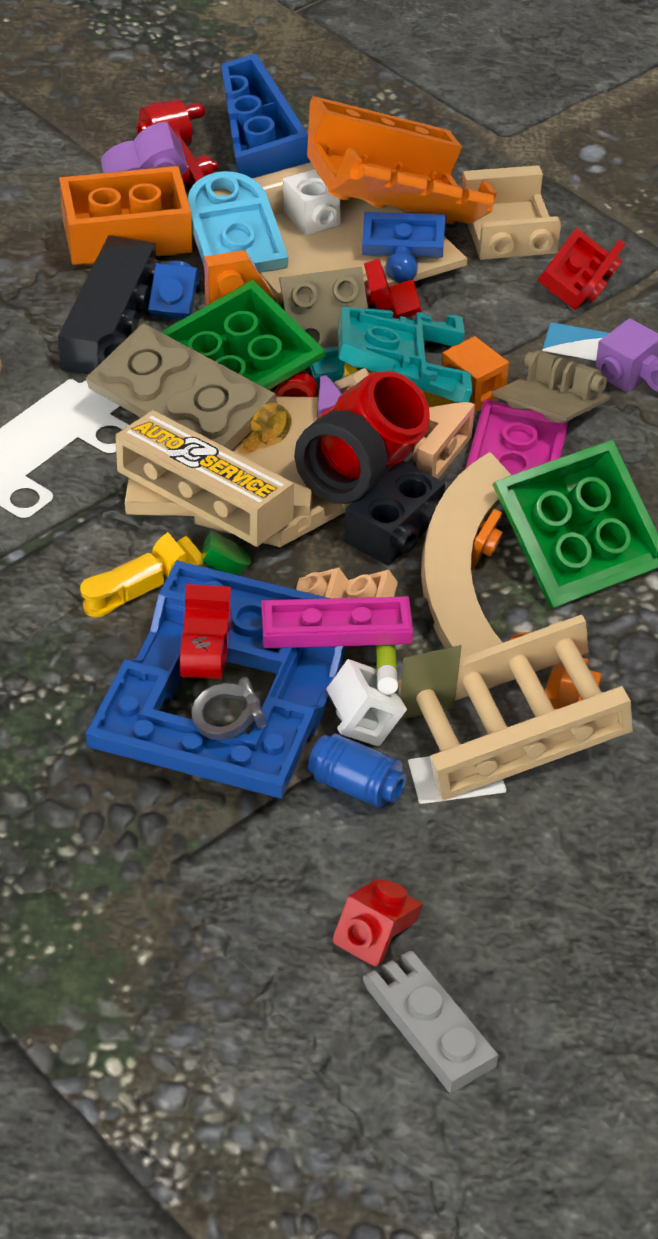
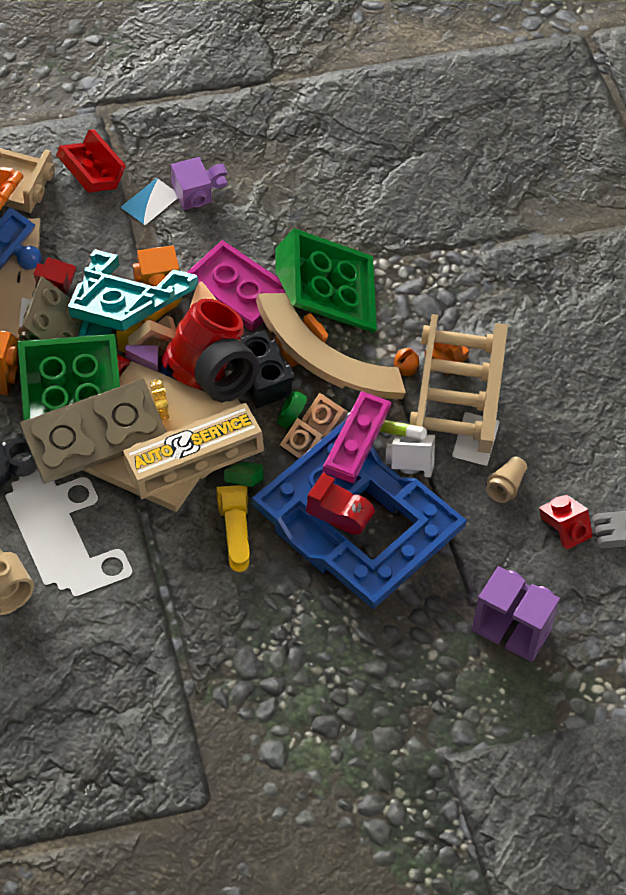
camera: 65 degrees left, 10 degrees up
(157, 894) = (510, 599): none -> medium lavender piece
(240, 691) = (391, 507): flat silver piece -> none
(357, 560) = (291, 409): none -> green tile
(357, 770) = (460, 480): blue head -> none
(399, 824) = (505, 481): none -> tan cone
(555, 387) = (203, 239): dark tan hinge -> none

